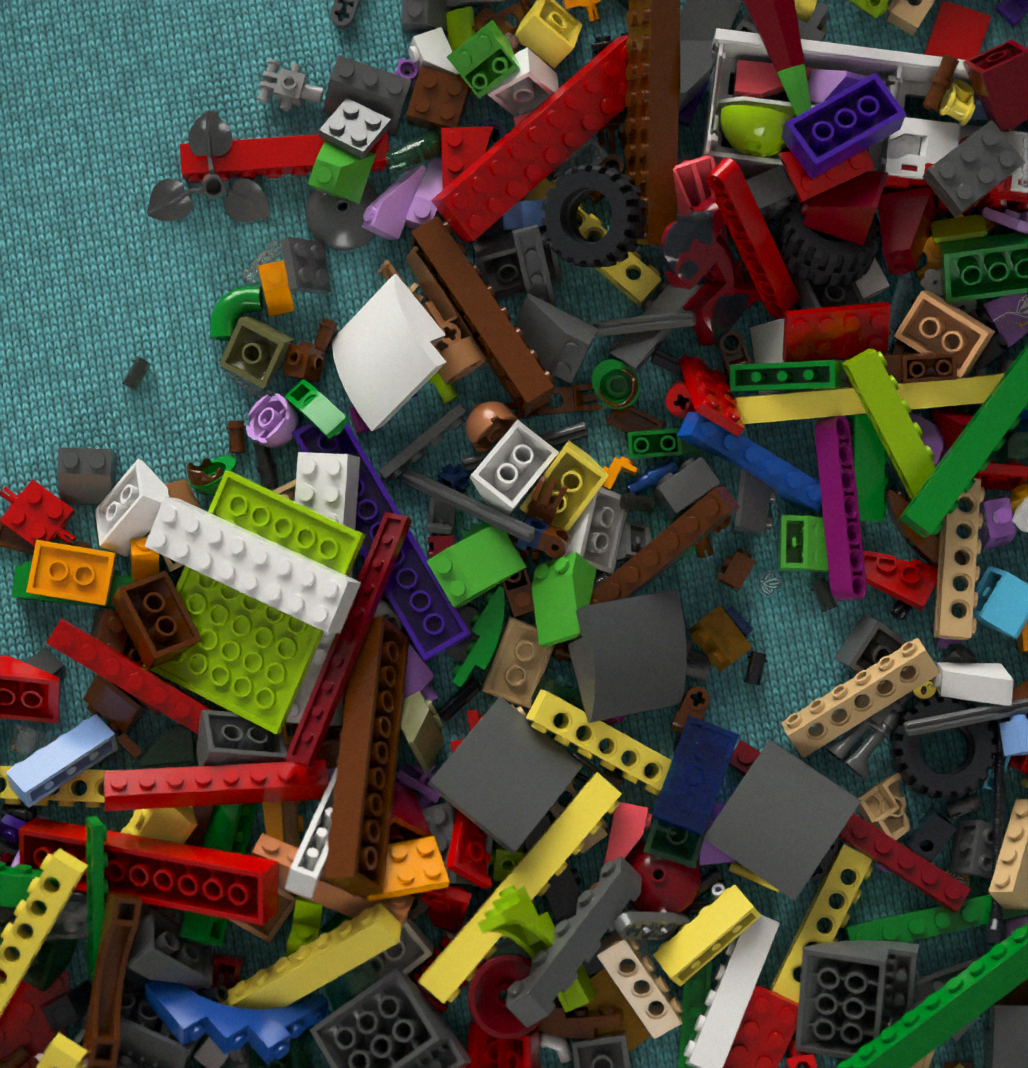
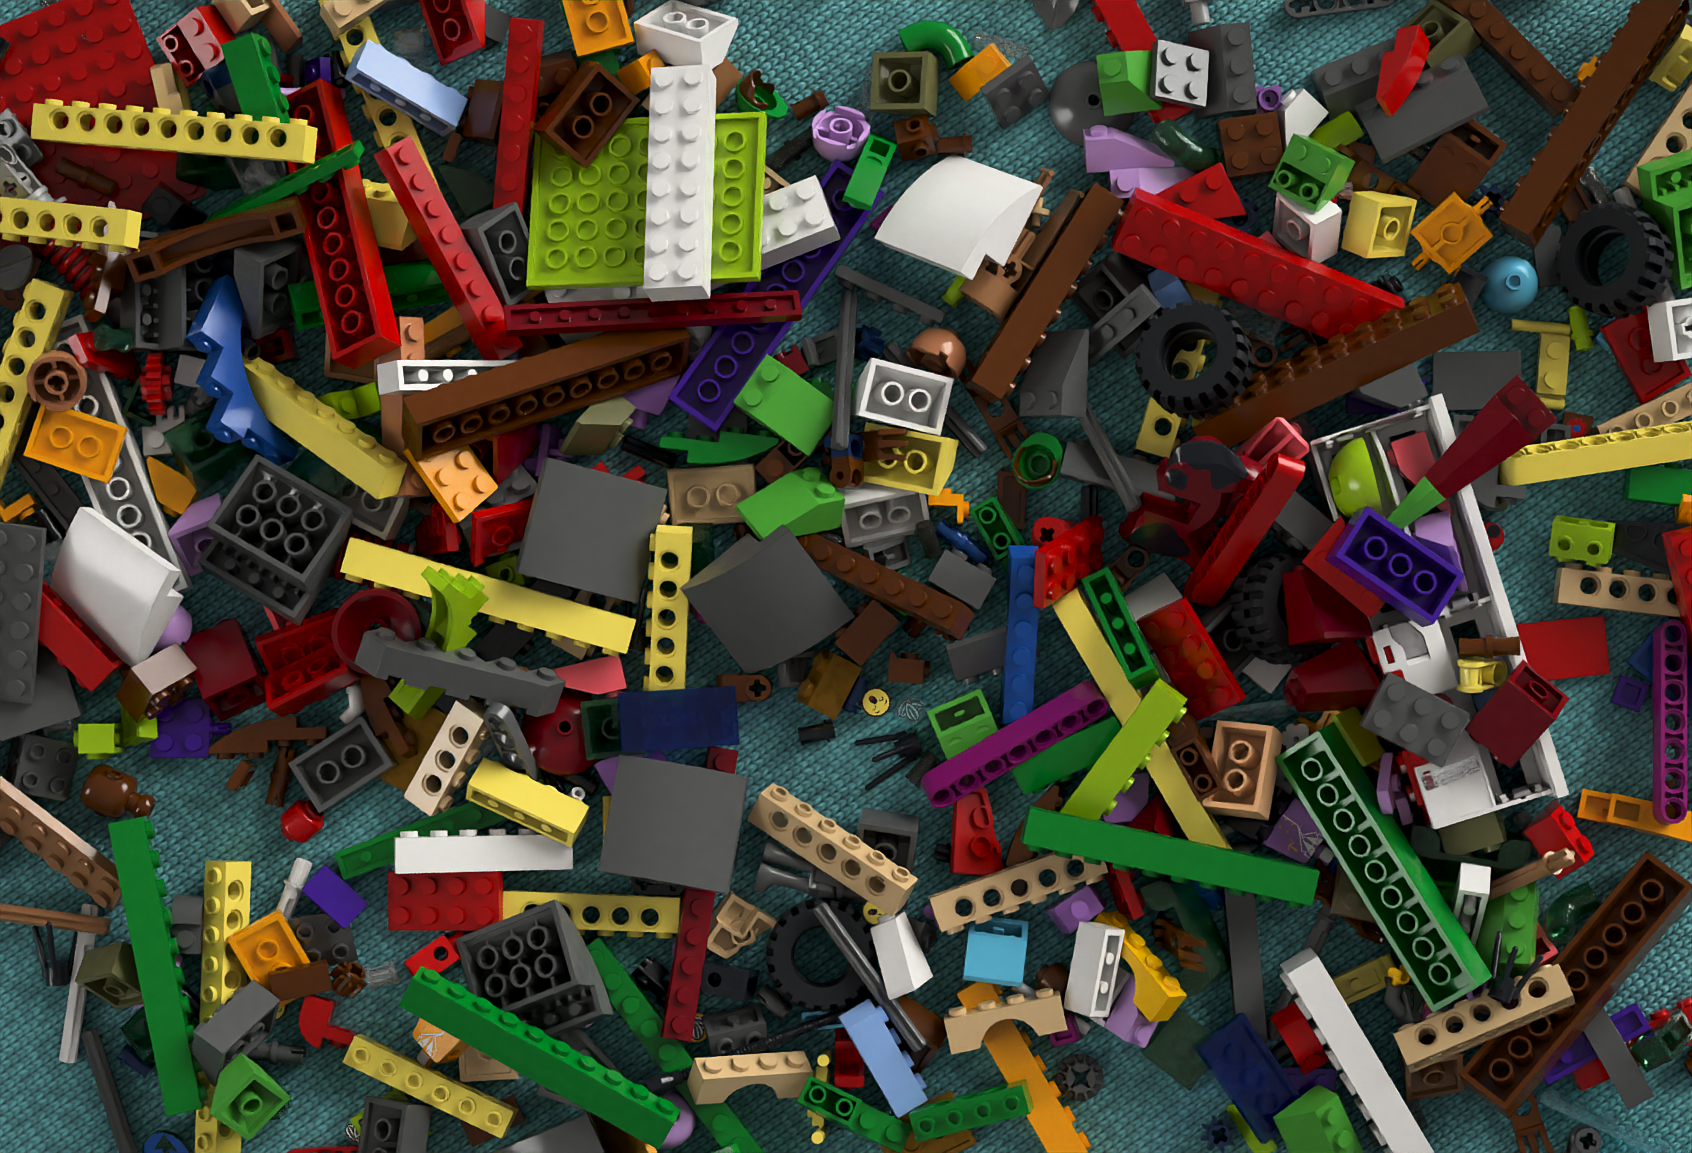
camera: 65 degrees right, 5 degrees up
(693, 587) = (866, 631): none -> reddish brown brick
(751, 608) = (875, 702): none -> light yellow tile
(800, 600) = (906, 746): none -> black plant
(899, 900) = (651, 979): none -> black hinge

